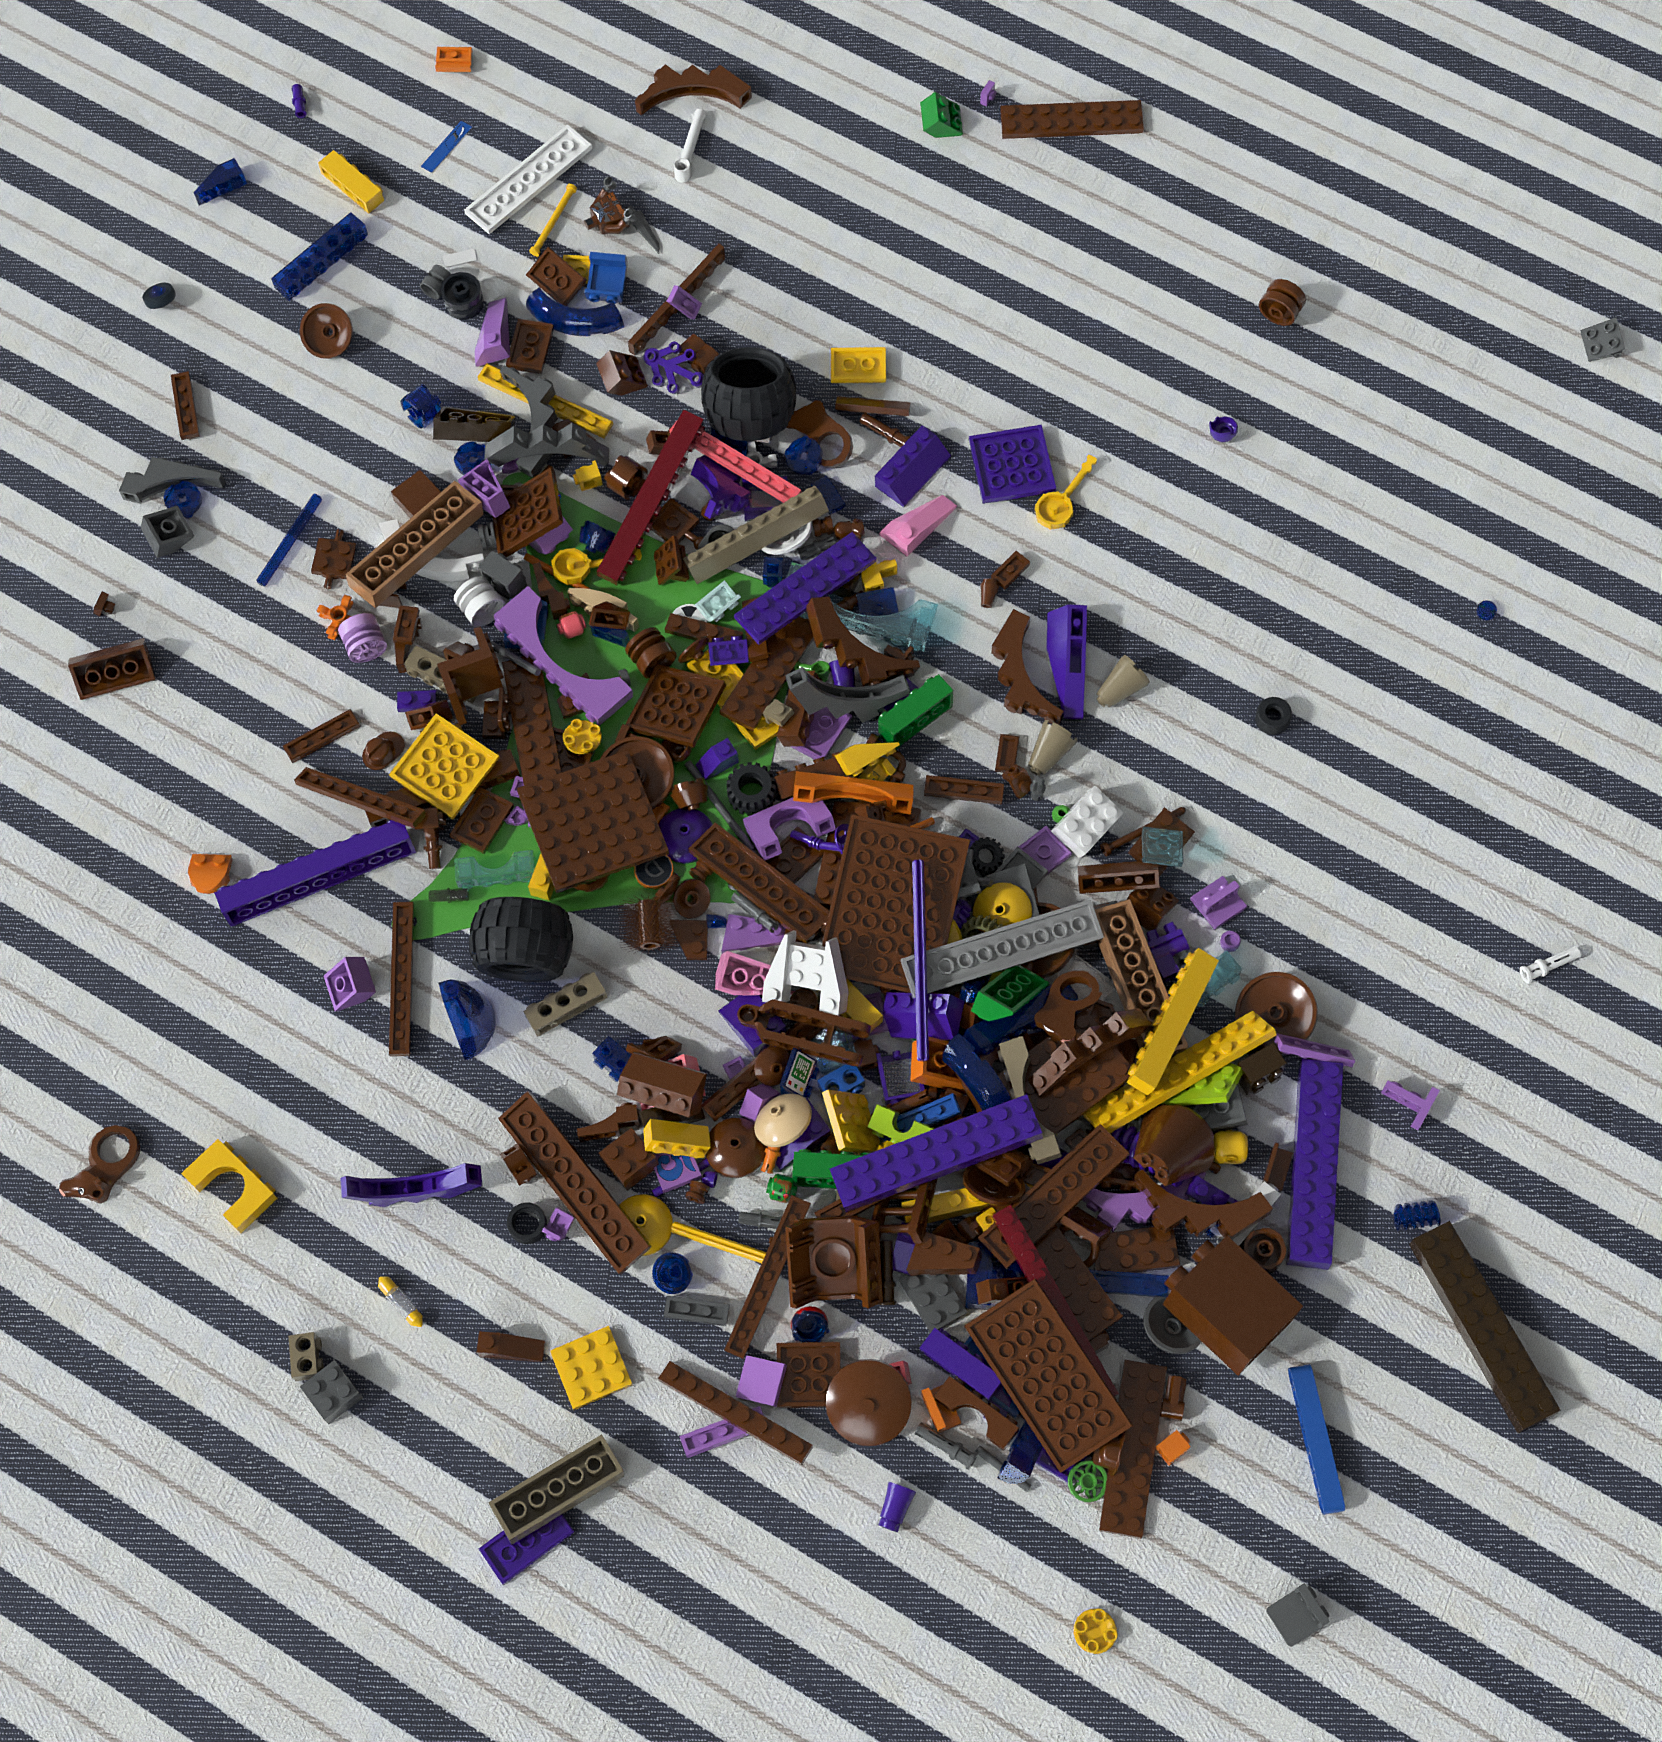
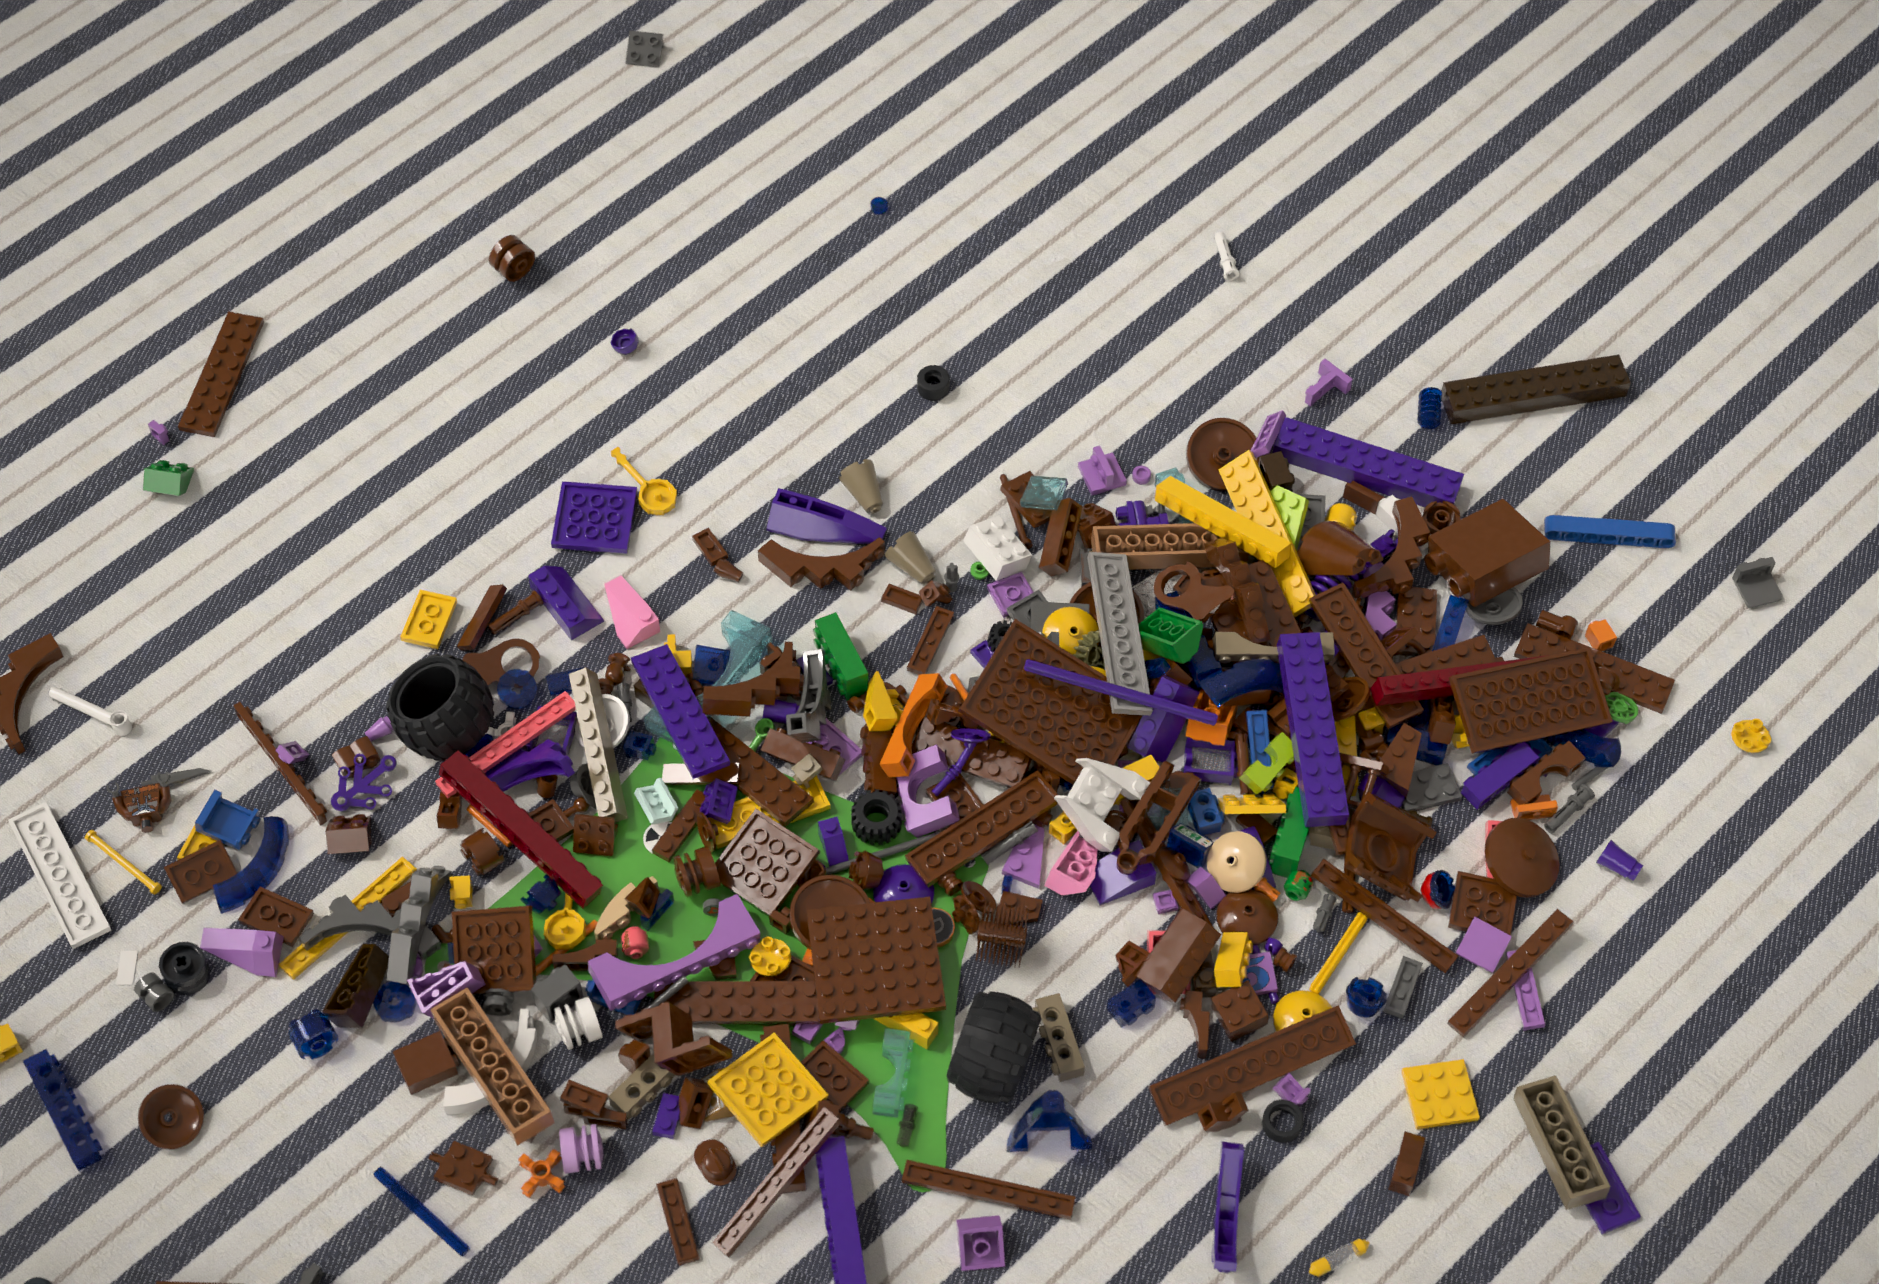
camera: 80 degrees left, 10 degrees down
(496, 717) = (721, 1028): reddish brown bracket -> none

